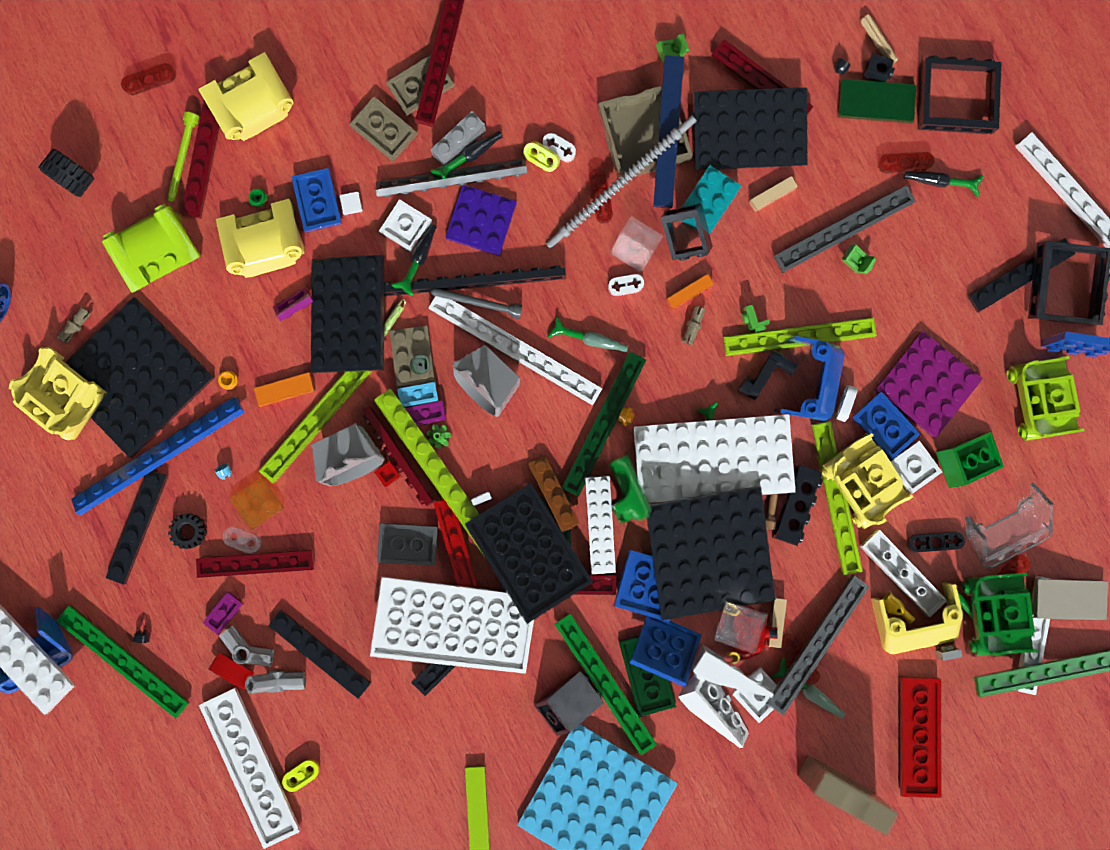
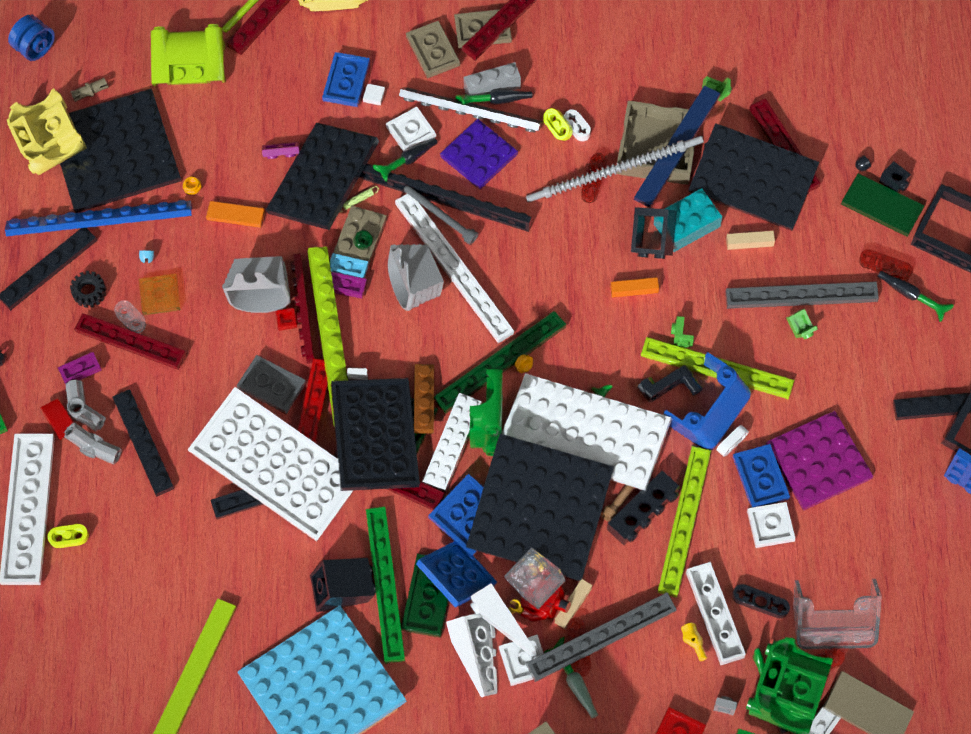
camera: 30 degrees right, 20 degrees down
(257, 193) = (297, 53): green plate -> none
(260, 240) = (281, 90): light yellow piece -> none
(312, 424) = (248, 249): lime tile -> none
(443, 435) = (348, 309): bright green plant -> none
(589, 337) = (524, 286): sand green piece -> none
(626, 280) = (579, 258): white beam -> none
(636, 244) = (606, 227): clear slope -> none
(693, 325) = (623, 316): dark tan pin -> none
(866, 481) = (718, 514): light yellow piece -> none
(878, 38) = (907, 155): tan axle -> none
(897, 639) = (708, 675): light yellow windscreen -> none
(970, 460) = (827, 540): green slope -> none
(1046, 398) = (925, 519): lime piece -> none

